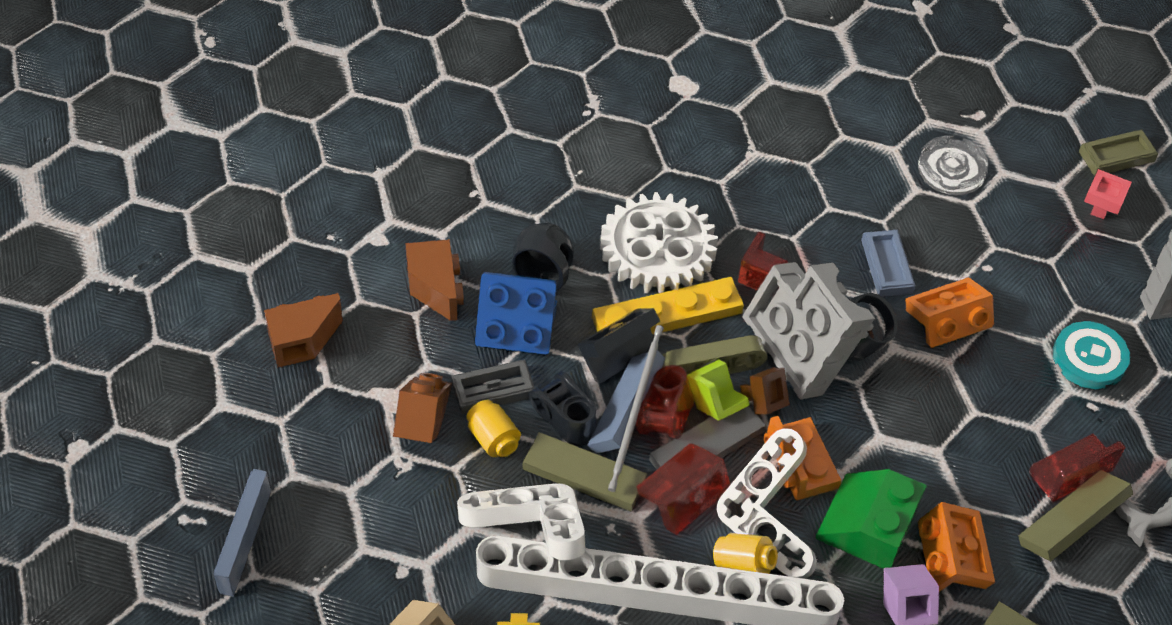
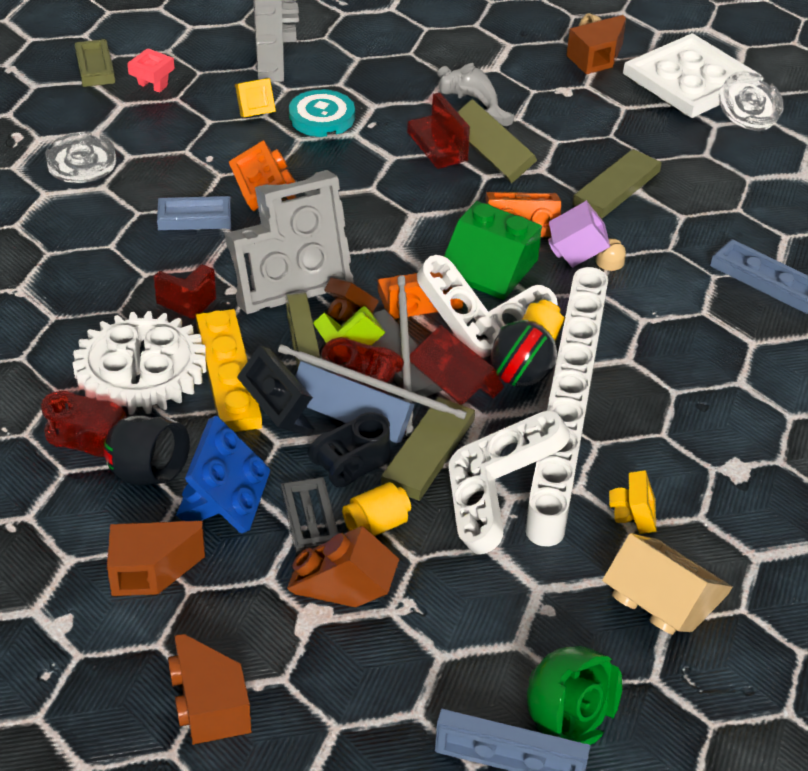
camera: 85 degrees left, 10 degrees down
(285, 571) = (574, 693): none -> green cylinder
(578, 210) = (82, 424): none -> clear red piece
(691, 529) = (523, 353): none -> black helmet
(697, 438) = (405, 345): none -> light grey piece
(1087, 288) = (255, 97): none -> yellow tile

